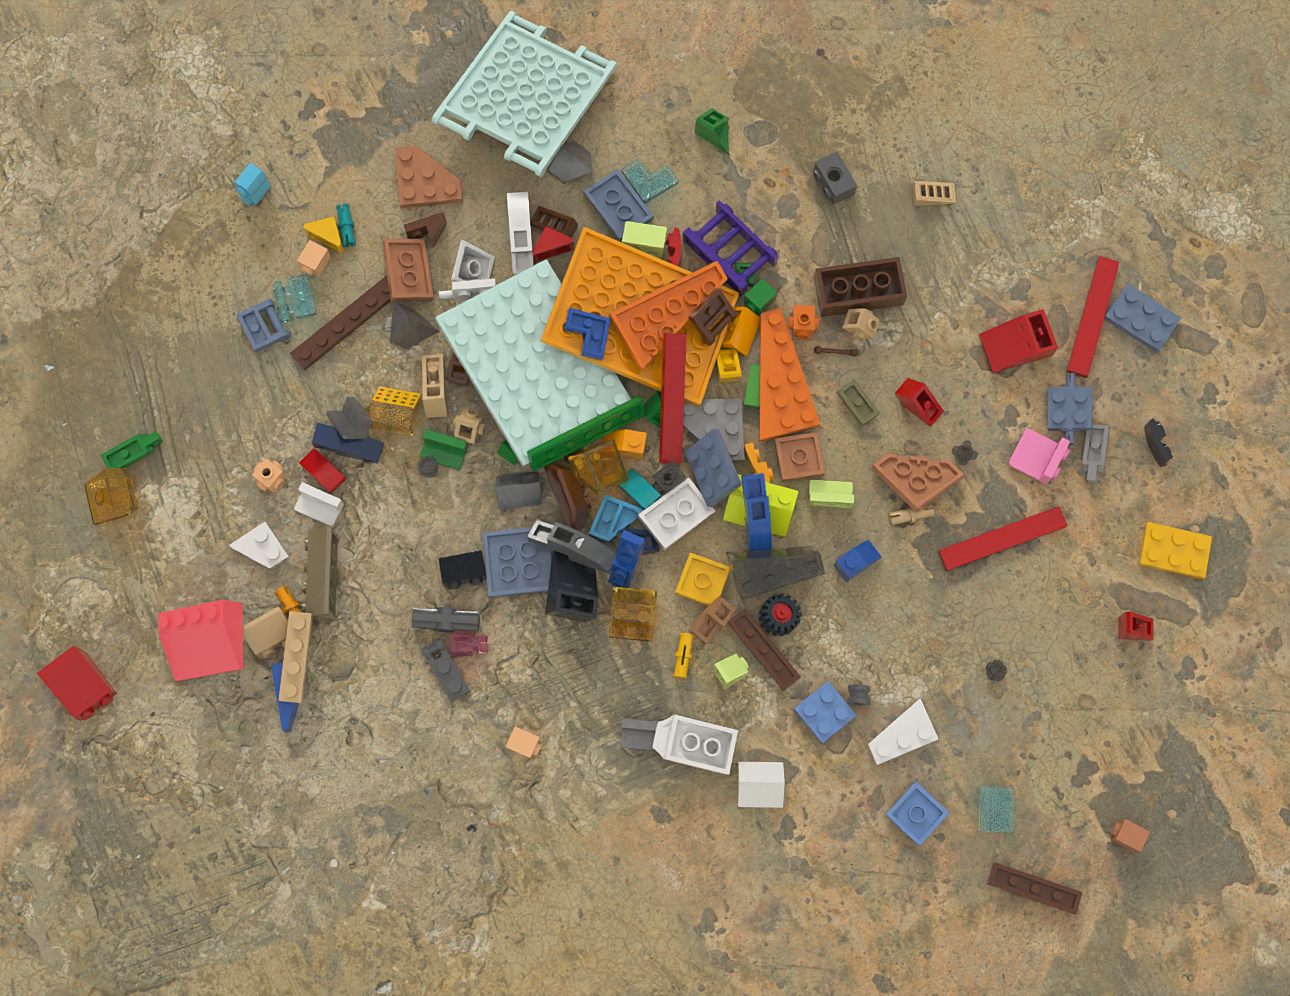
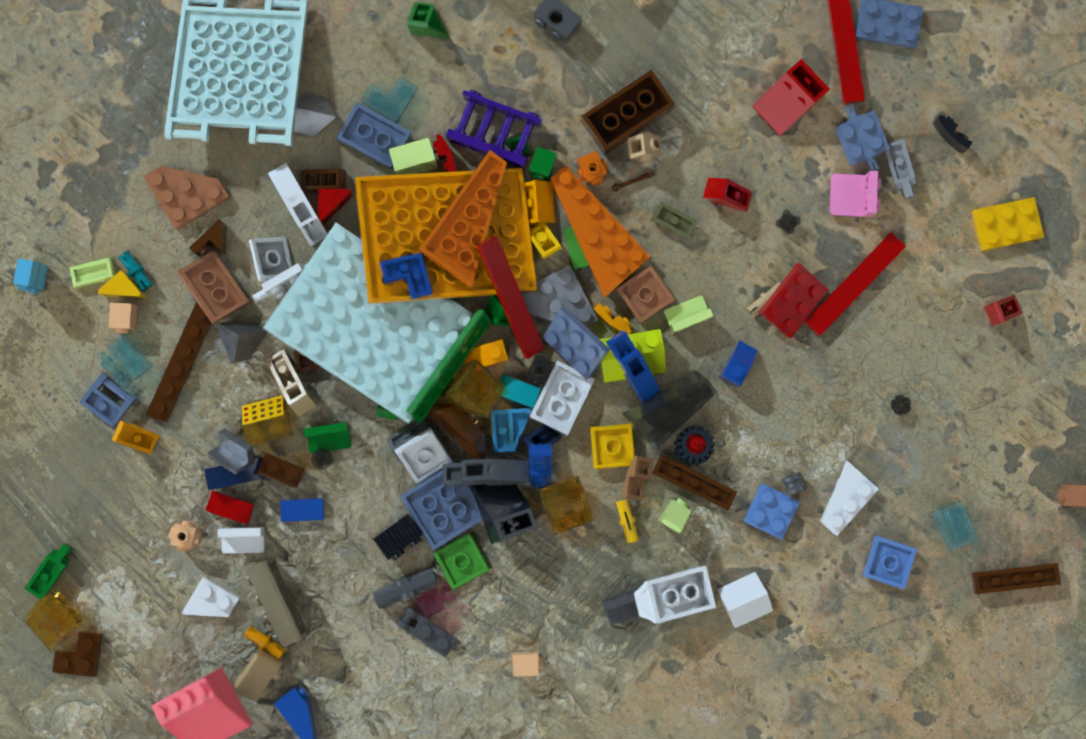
camera: 25 degrees left, 10 degrees up
(117, 547) = (83, 661): none -> reddish brown plate
(270, 368) = (135, 437): none -> light orange slope
(295, 657) = (292, 688): tan plate -> none
(306, 209) = (92, 272): none -> yellowish green tile
(385, 459) = (280, 471): none -> reddish brown plate
(386, 504) = (302, 510): none -> blue tile
(469, 425) = (340, 406): tan brick -> none
(509, 620) = (461, 561): none -> bright green tile
(522, 505) = (423, 455): none -> white tile
(708, 312) = (506, 202): reddish brown plate -> none
(917, 478) = (757, 265): nougat plate -> none
(936, 525) = (793, 300): none -> red plate

